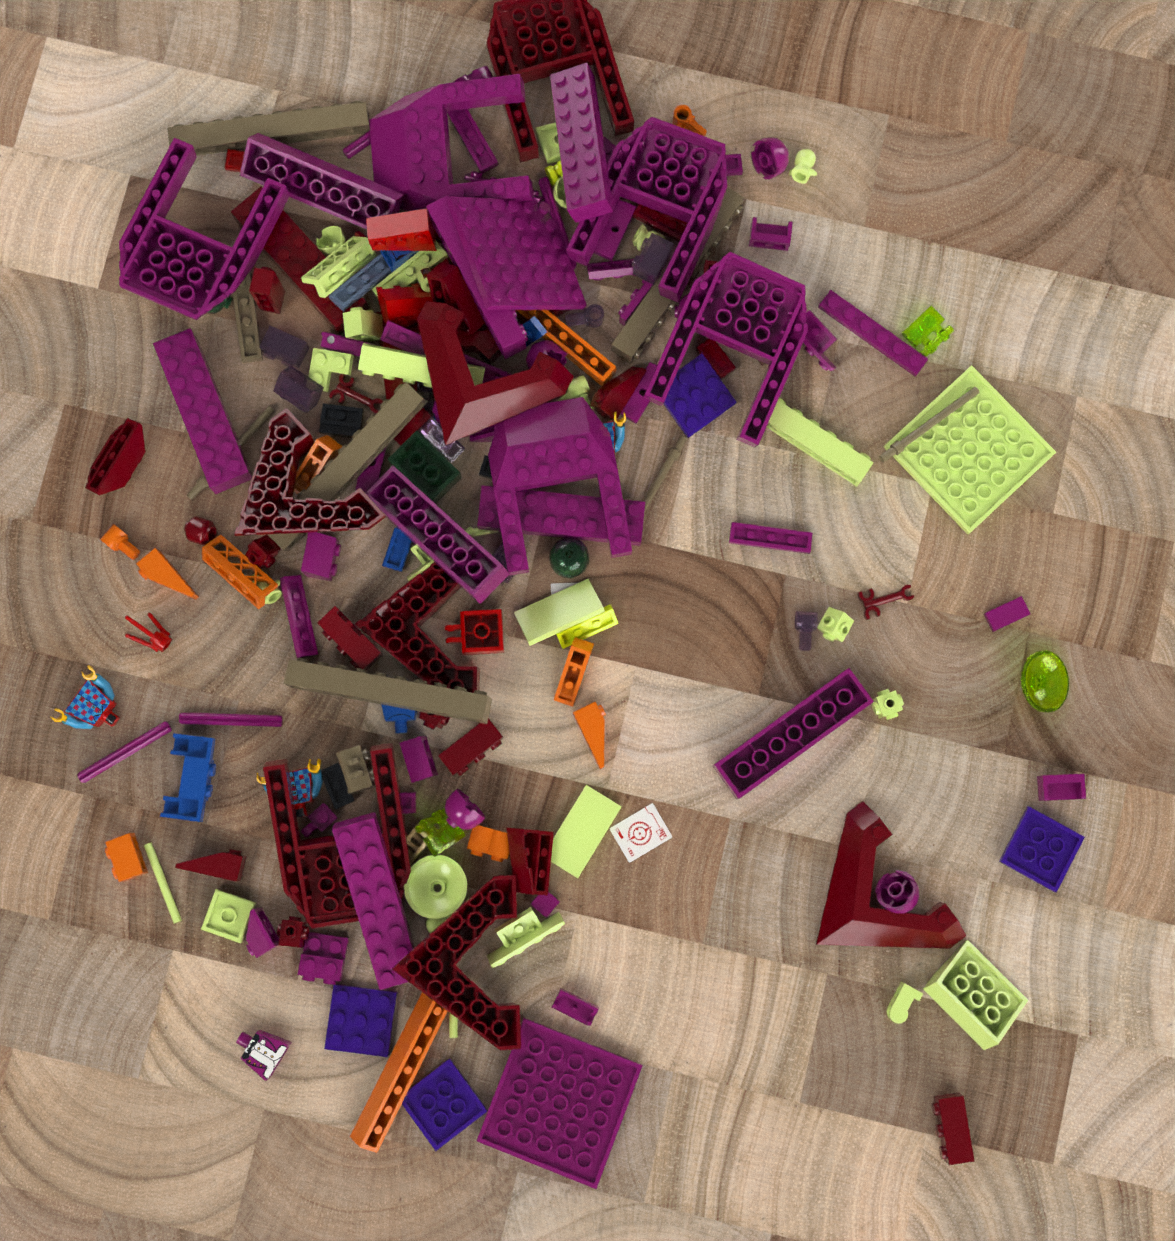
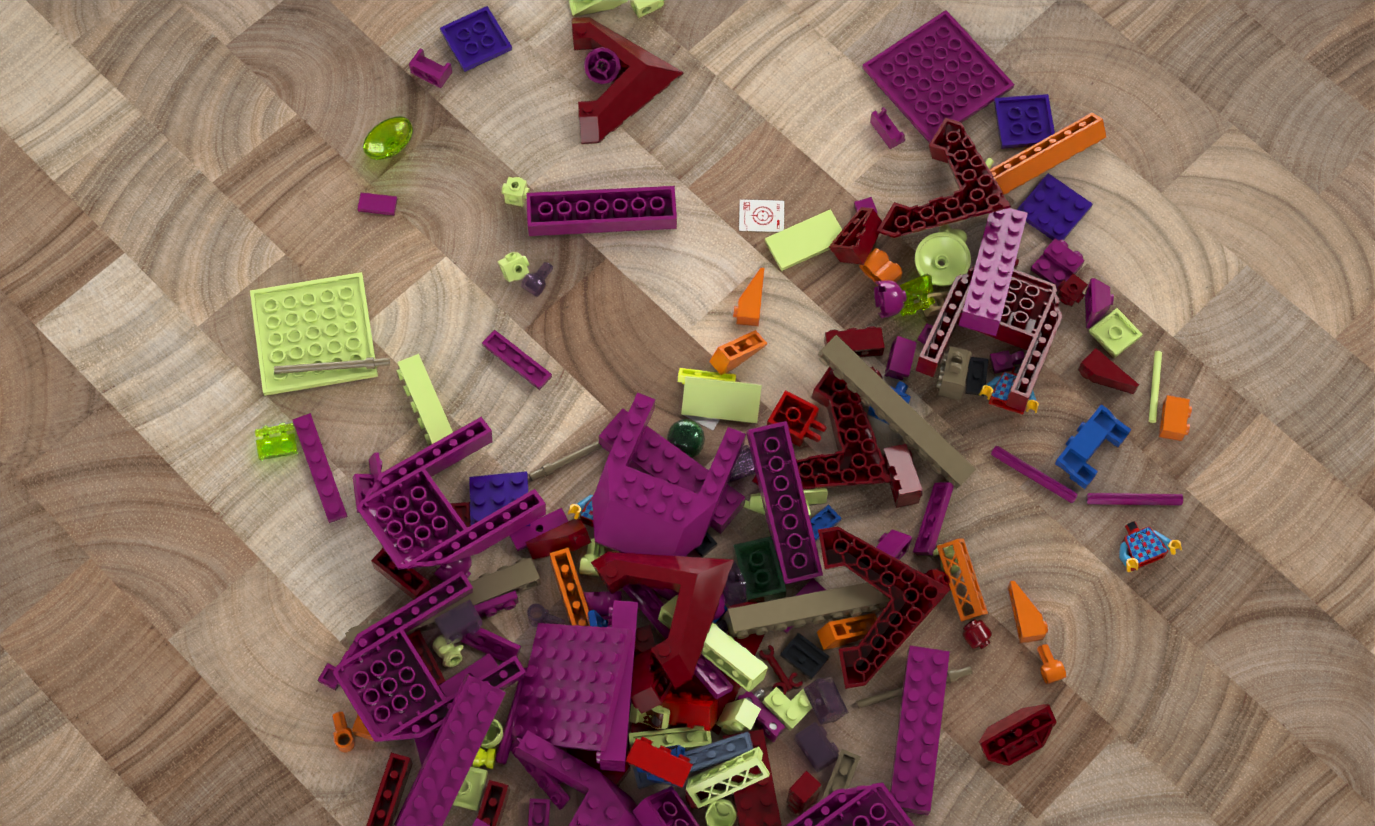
camera: 145 degrees left, 15 degrees down
(160, 641) = (1060, 567): red plant -> none
(263, 1052) = (1139, 226): torso -> none
(521, 933) = (898, 192): yellowish green bracket -> none
(770, 157) = (295, 656): magenta cylinder -> none
(770, 236) = (343, 595): magenta panel -> none
(804, 162) = (272, 636): yellowish green animal -> none
(870, 603) = (473, 271): dark red bar -> none

